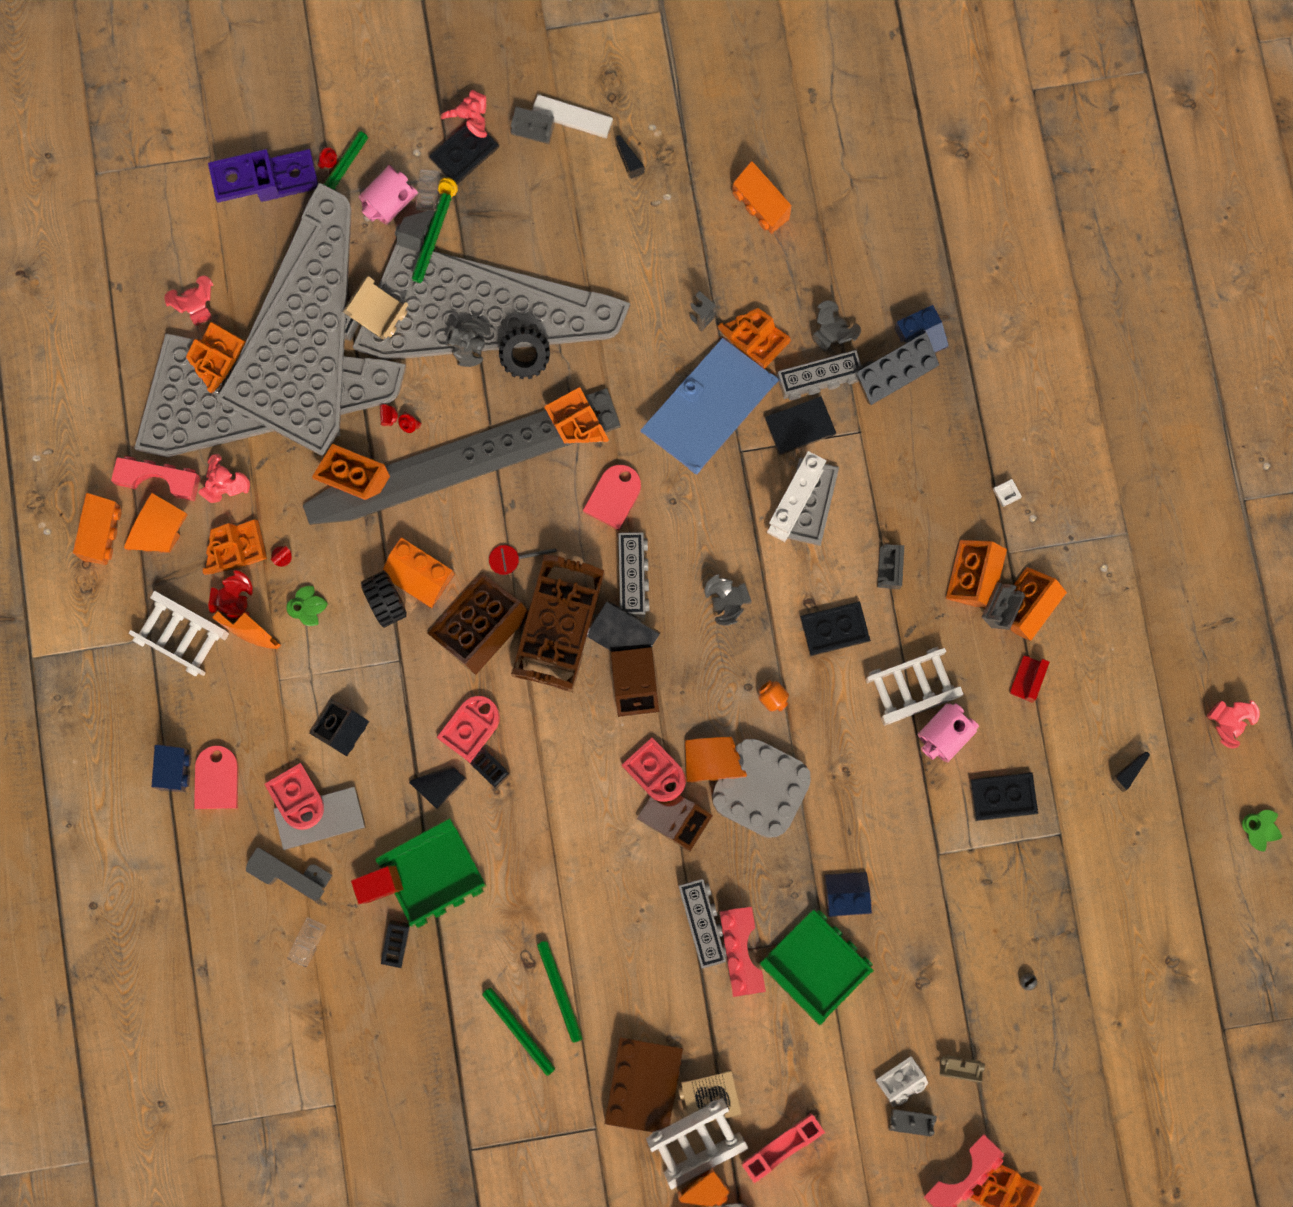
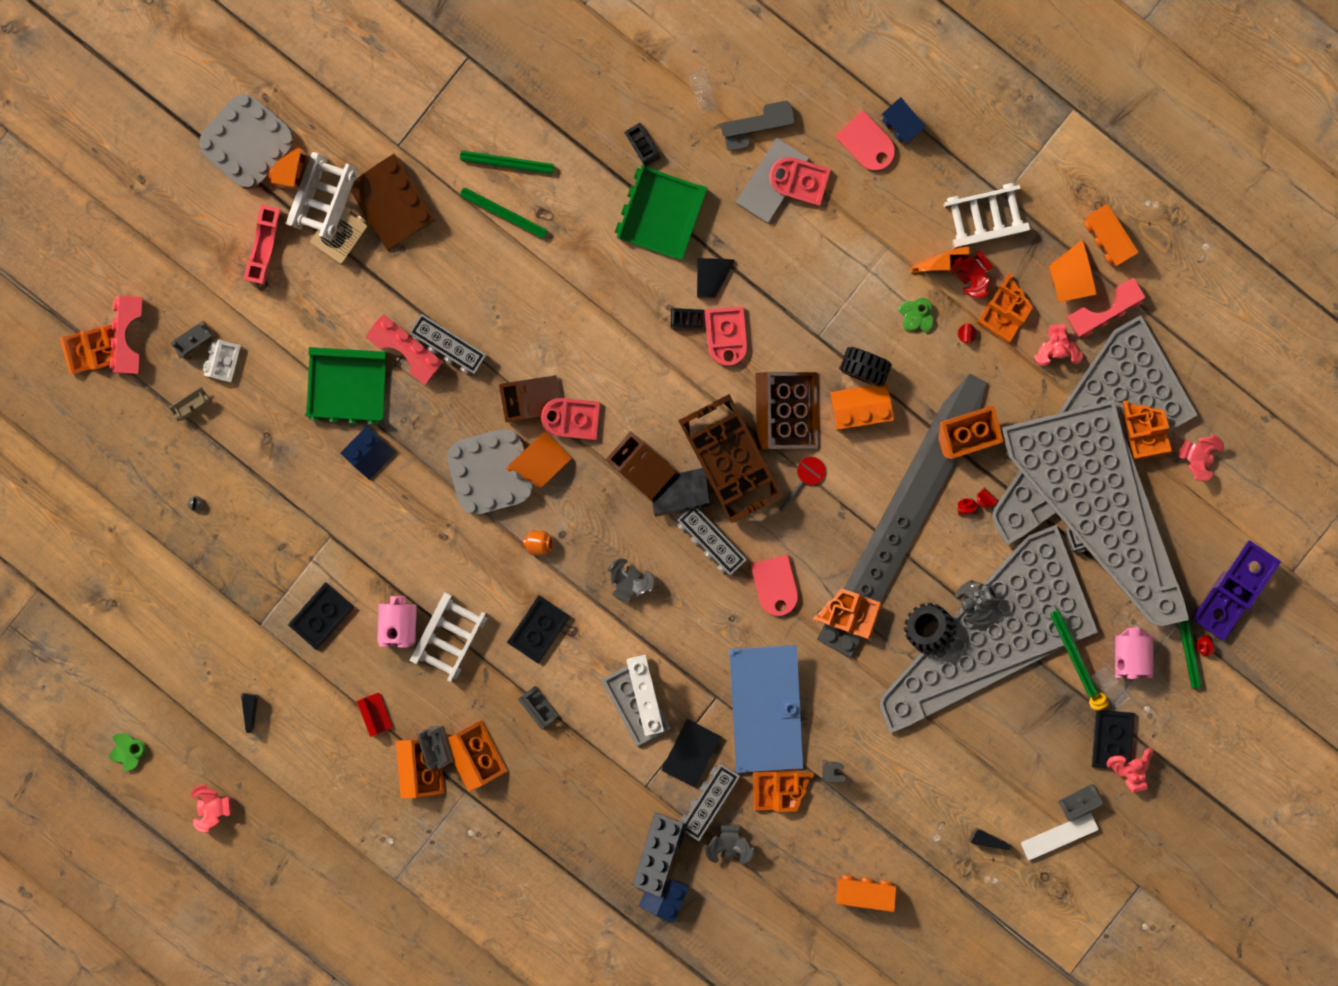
camera: 135 degrees right, 10 degrees up
(339, 727) = (816, 252): black slope -> none
(375, 309) = (1062, 564): tan panel -> none
(377, 885) = (690, 171): red panel -> none
(413, 230) = (1090, 647): dark grey slope -> none
(1007, 493) = (503, 833): white plate -> none

